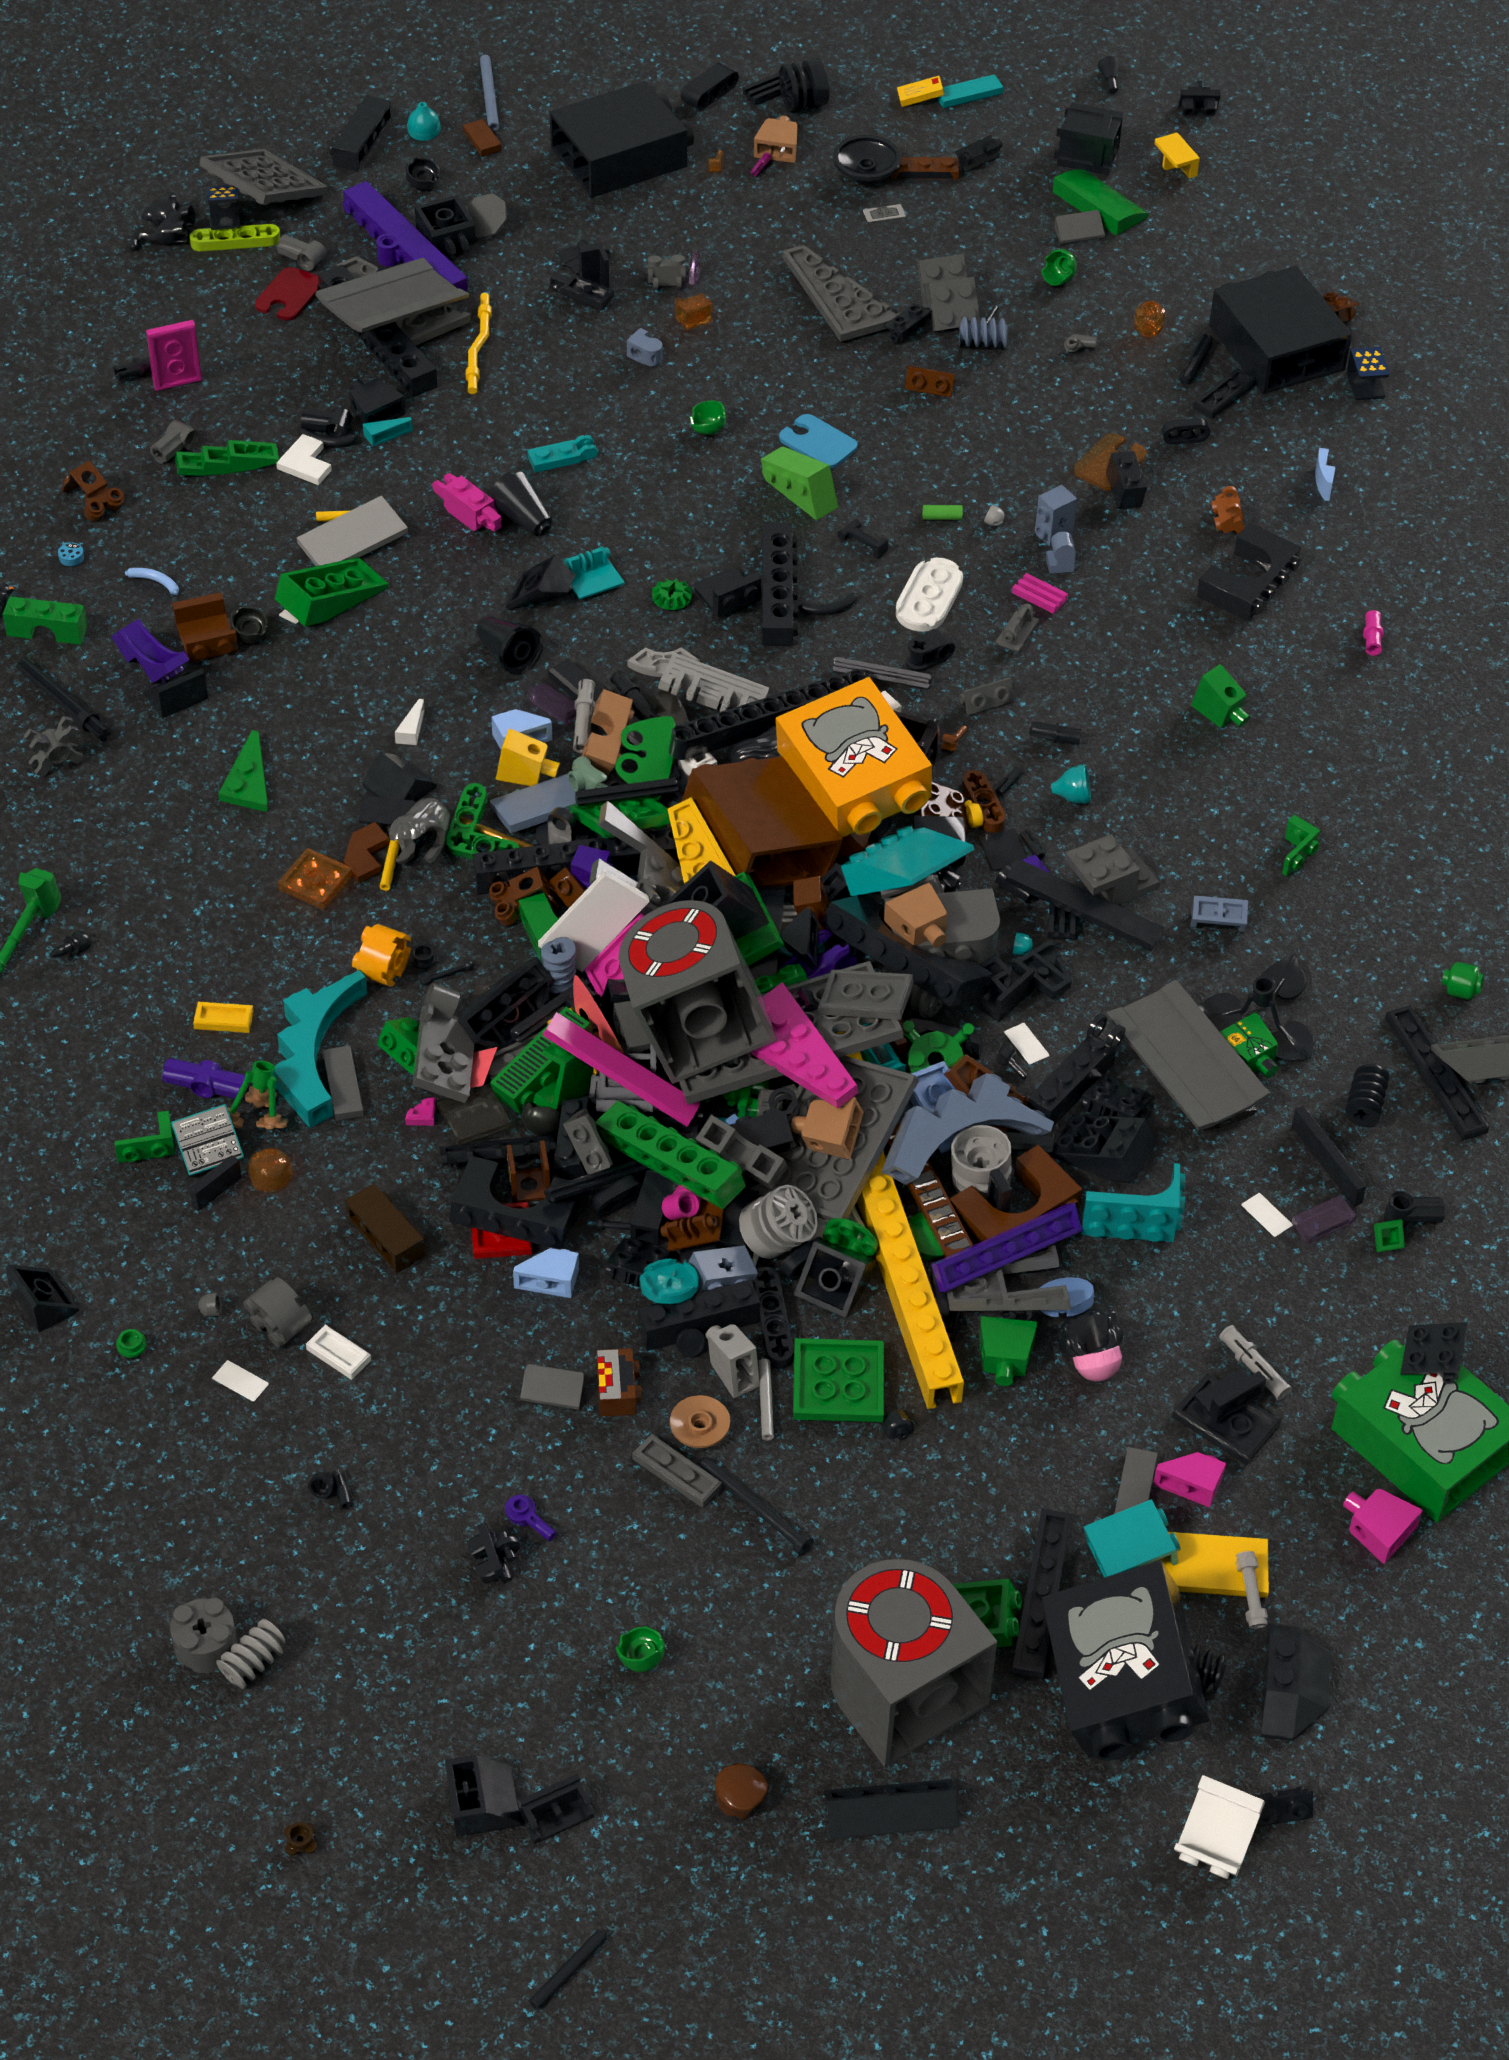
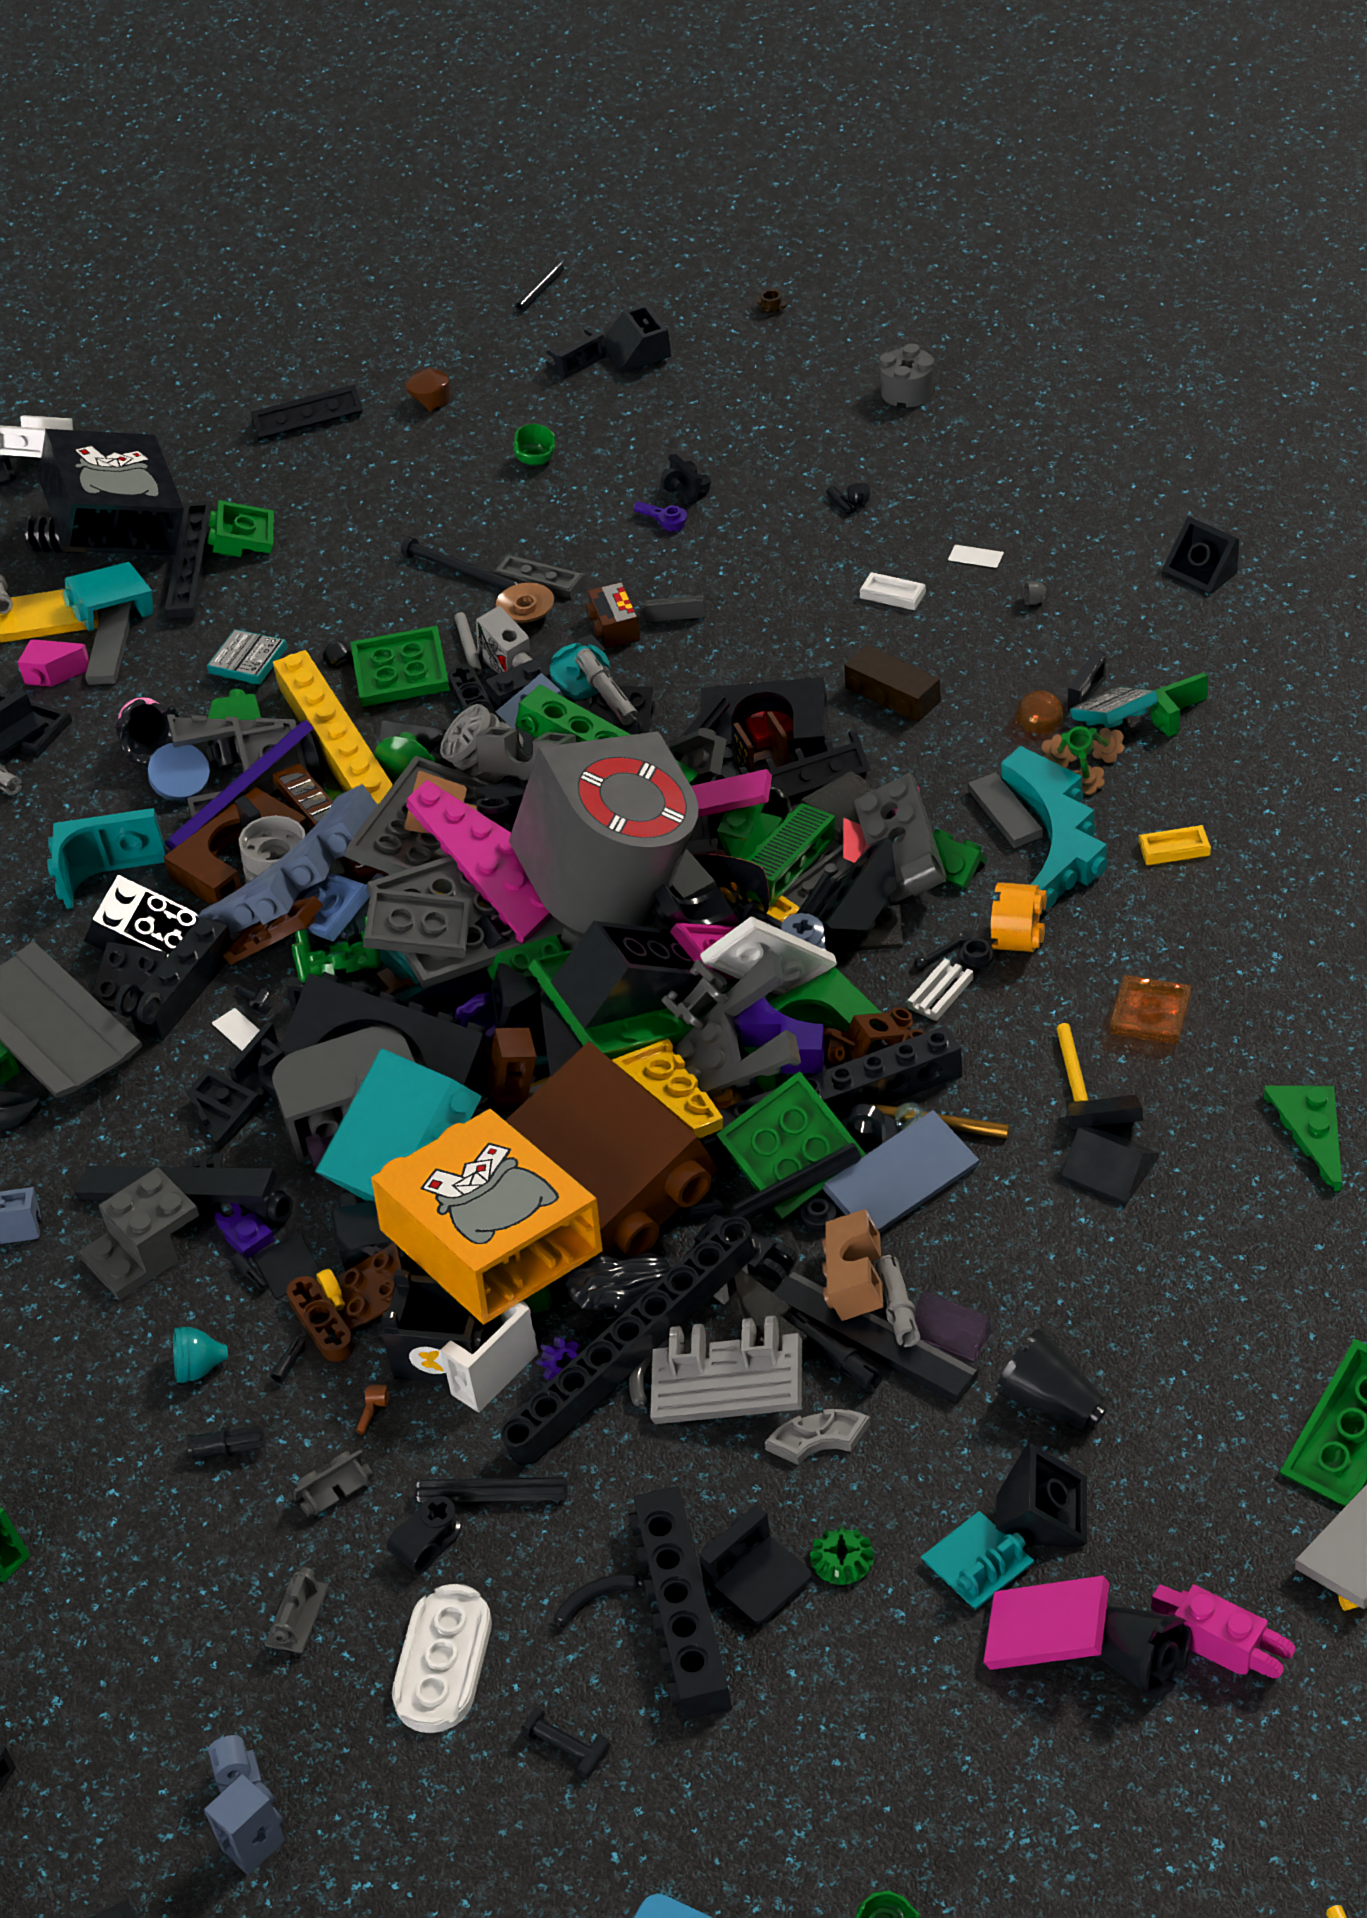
camera: 175 degrees right, 5 degrees down
(131, 1343) = (1092, 550): green plate -> none
(203, 1078) = (1153, 771): dark purple piece -> none
(251, 1652) = (860, 374): light grey piece -> none
(277, 1311) = (960, 582): dark grey brick -> none
(359, 851) = (1116, 1070): reddish brown tile -> none
(410, 727) = (1130, 1235): white piece -> none
(422, 817) = (1043, 1070): dark grey hair -> none
(459, 935) = (935, 987): none -> white tile
(469, 831) = (986, 1098): green beam -> none
(523, 722) = (978, 1261): light blue slope -> none
(524, 760) = (950, 1204): yellow torso -> none
(528, 835) = (905, 1108): none -> clear light blue hinge
(548, 1273) = (708, 674): light blue slope -> none
(562, 453) = (1119, 1801): teal hinge -> none
(566, 519) = (1047, 1623): none -> dark pink tile
(585, 775) = (856, 1188): sand green piece -> none
(653, 1251) = (599, 677): none -> light grey pin
(656, 744) = (775, 1262): green piece -> none
(801, 480) = (696, 1815): bright green wedge -> none
(907, 1656) = (294, 443): dark grey brick -> none
(918, 916) = (368, 1030): medium nougat torso -> none
(942, 512) = (442, 1828): bright green axle -> none
(989, 1433) = (247, 656): none -> tile
(994, 516) = (354, 1838): light grey hinge -> none
(1022, 944) = (252, 1130): teal hinge -> none
(1041, 590) = (272, 1685): dark pink tile -> none

